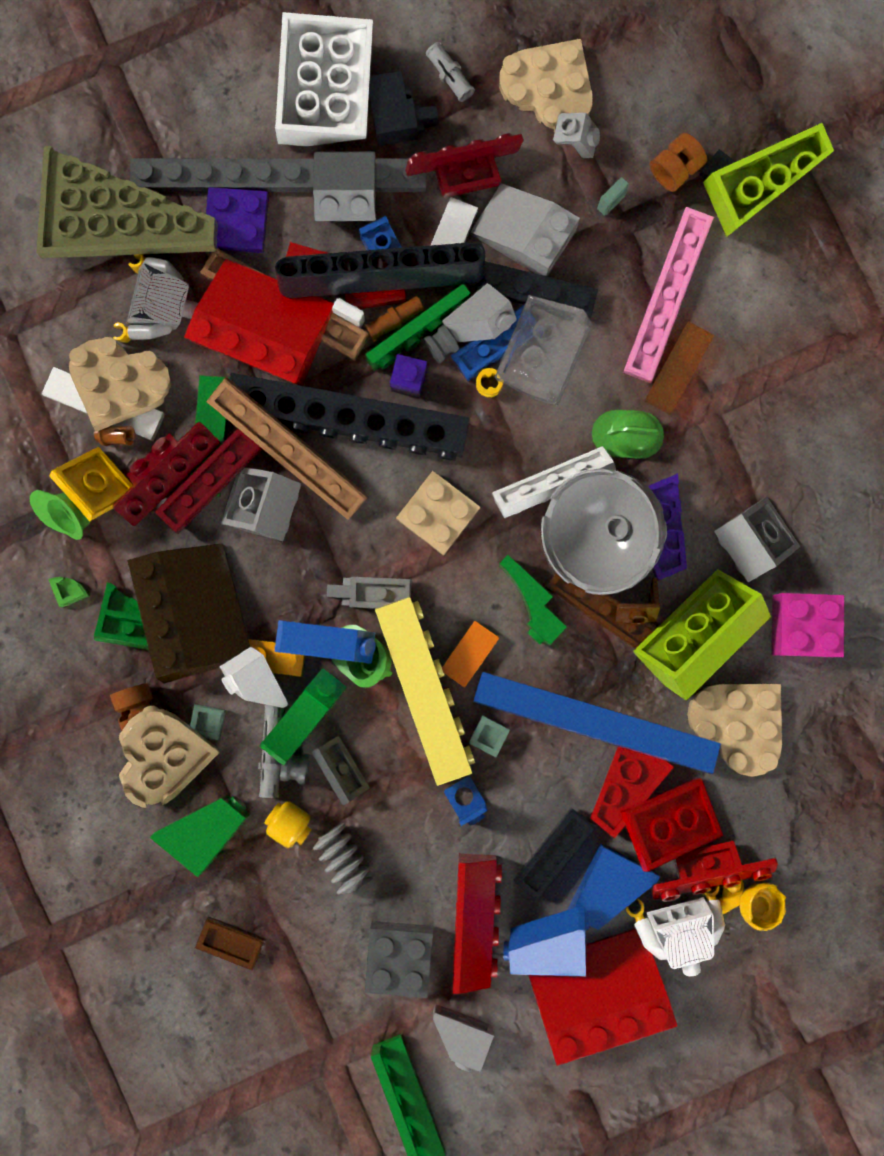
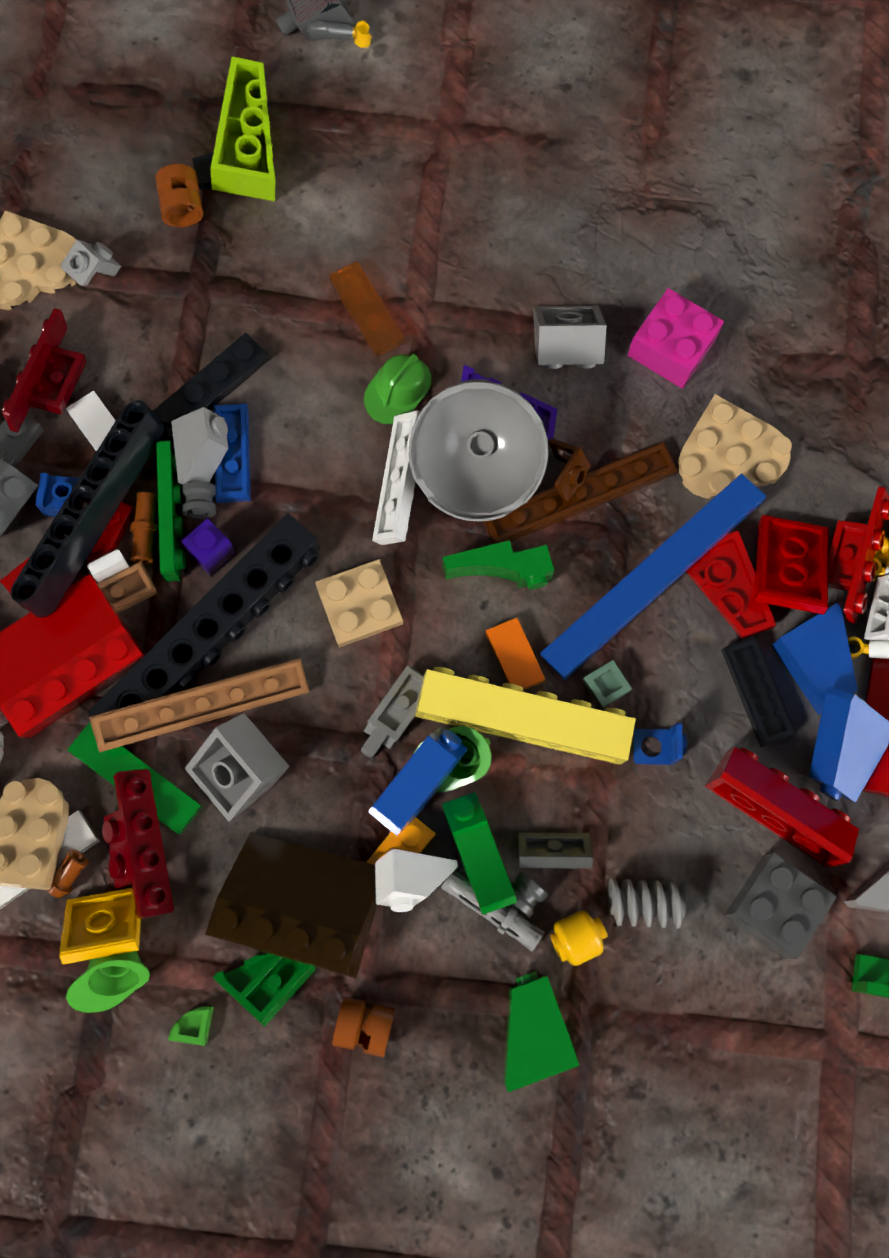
camera: 65 degrees left, 10 degrees down
(161, 756) = (430, 1025): tan plate -> none
(208, 481) = (178, 804): dark red tile -> none
(208, 721) = (422, 961): sand green tile -> none
(230, 943) = (666, 1078): reddish brown tile -> none
(490, 392) = (275, 482): yellow bush -> none
(526, 228) = (144, 359): light grey slope -> none
(544, 349) = (269, 410): clear slope -> none
(613, 196) = (170, 268): sand green tile -> none
(668, 295) = (293, 279): bright pink tile -> none
(703, 633) = (627, 430): lime slope -> none

